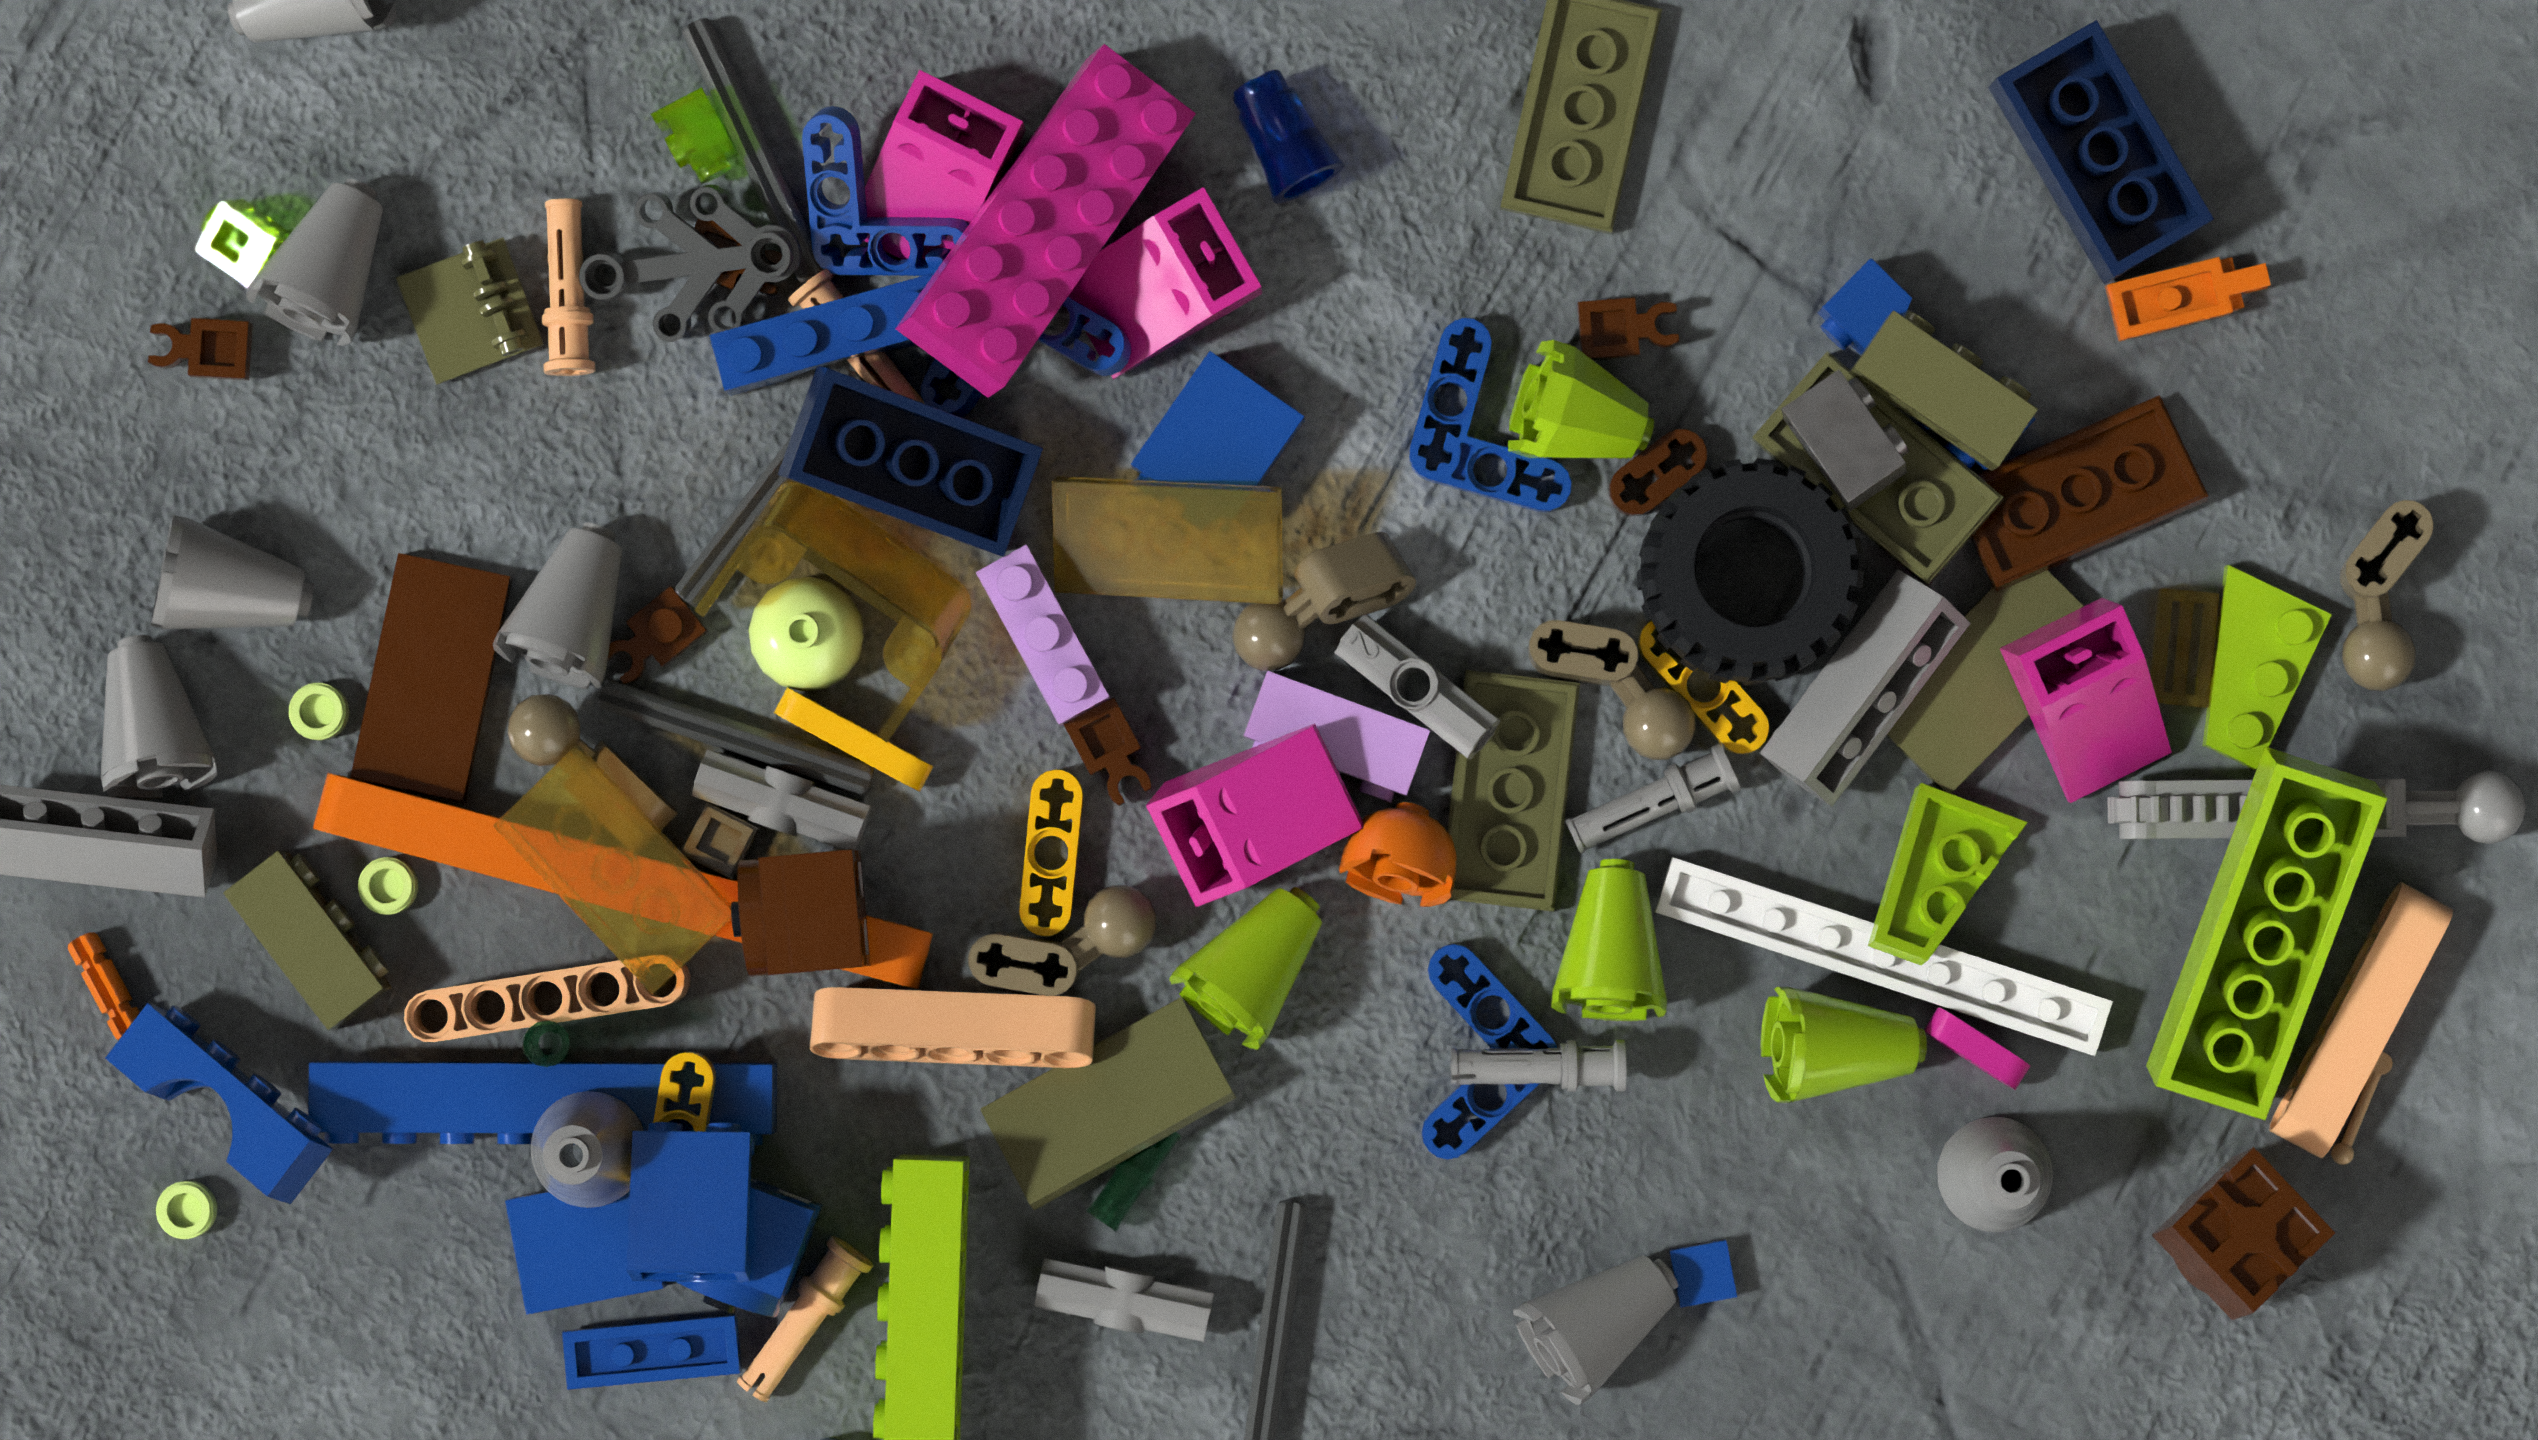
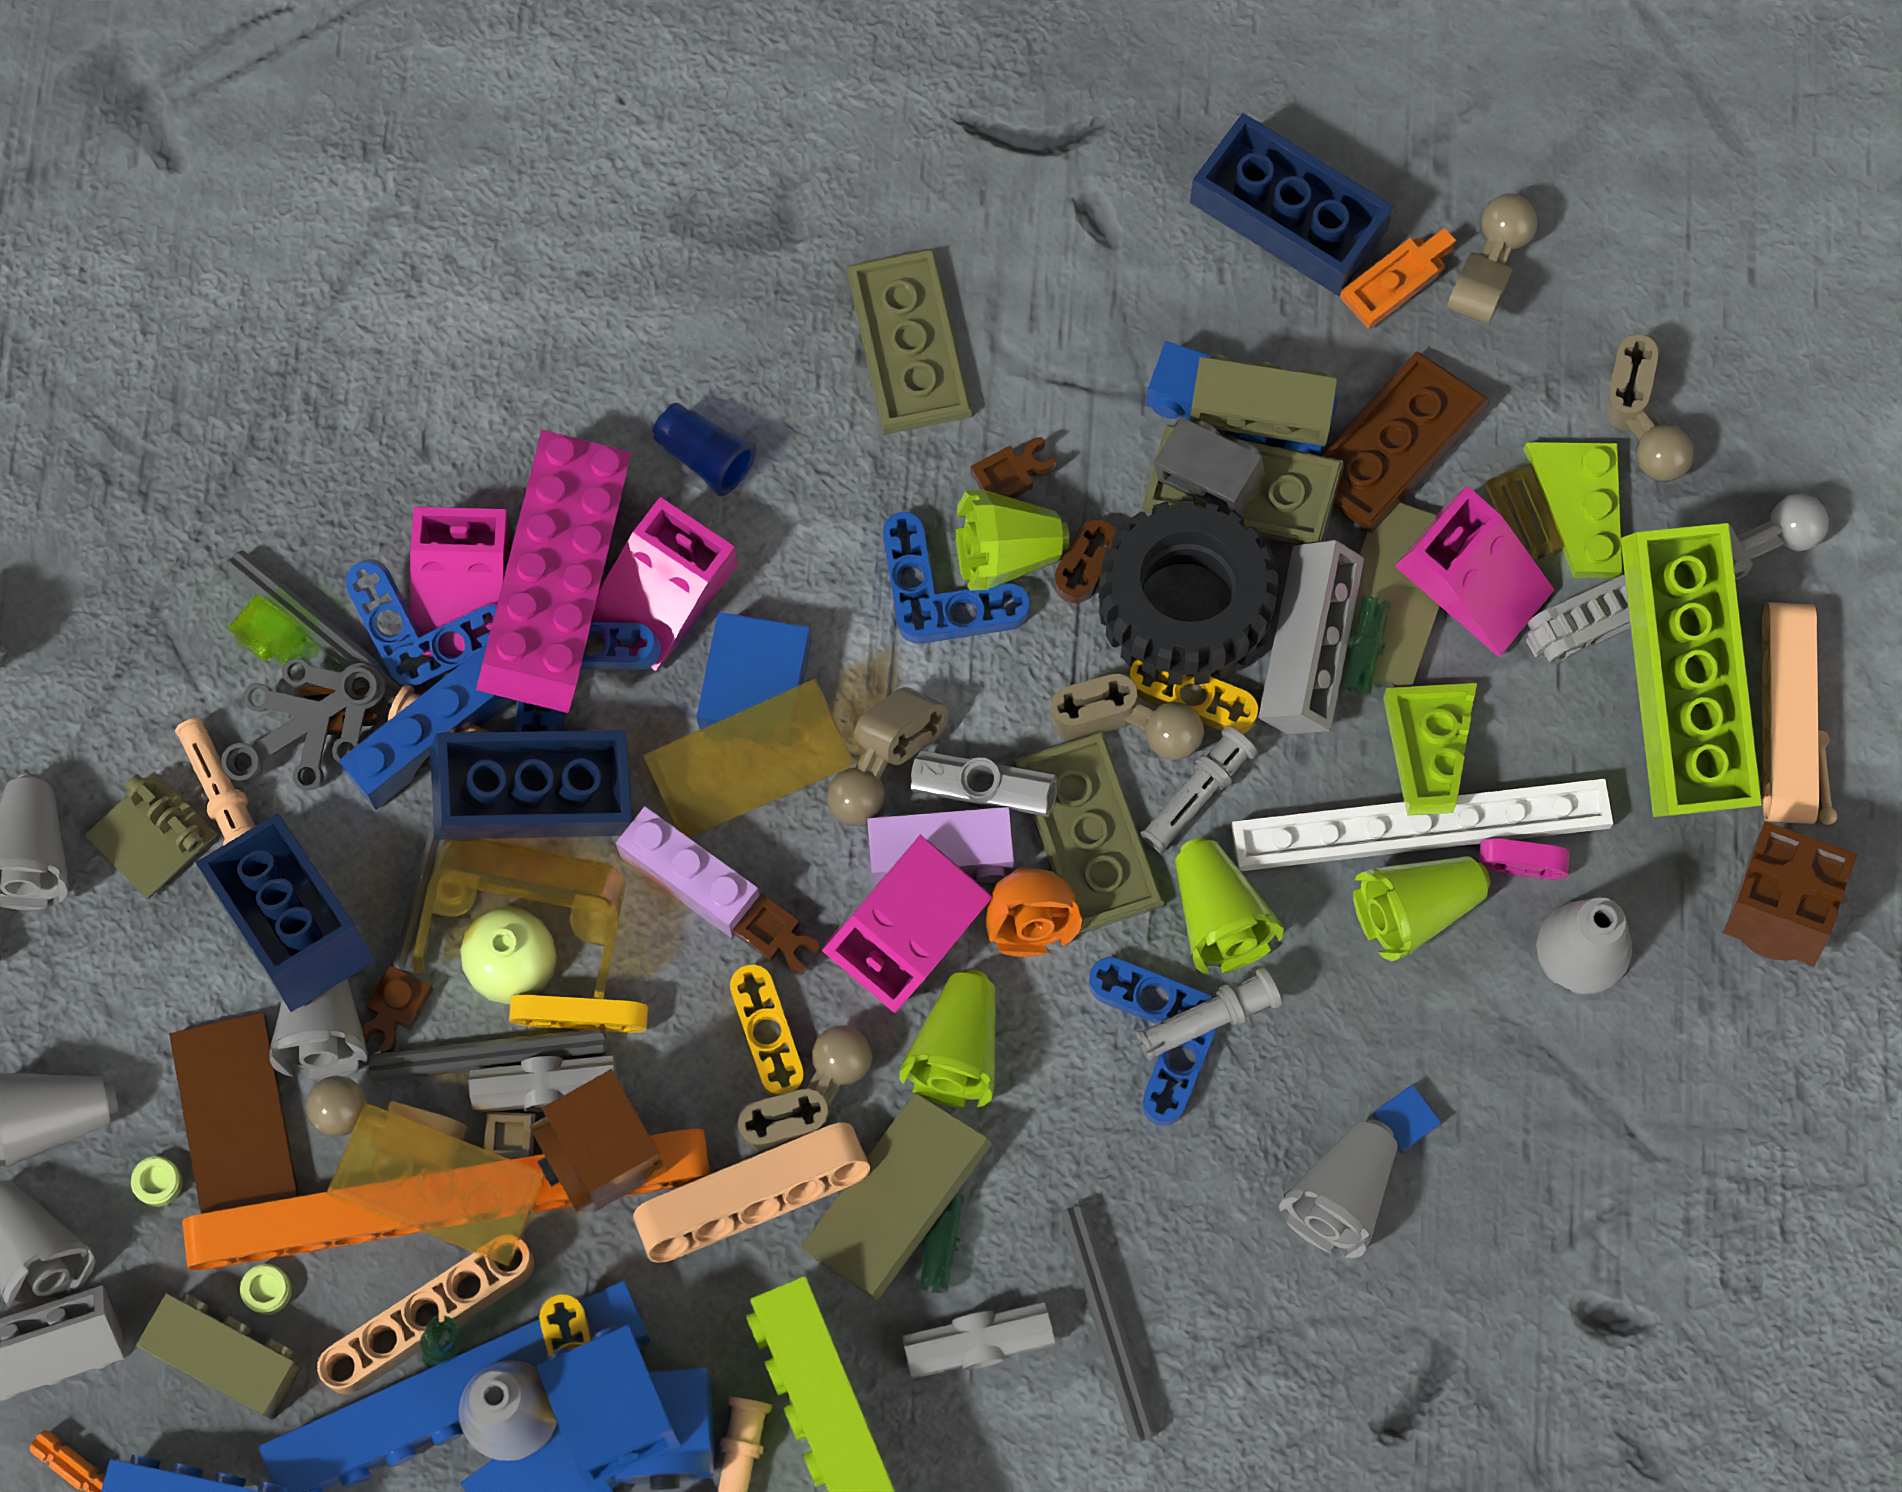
camera: 30 degrees left, 15 degrees down
(576, 486) = (285, 912): none -> dark blue brick
(1922, 726) = (1366, 645): none -> clear green pin
(2341, 293) = (1507, 225): none -> dark tan beam

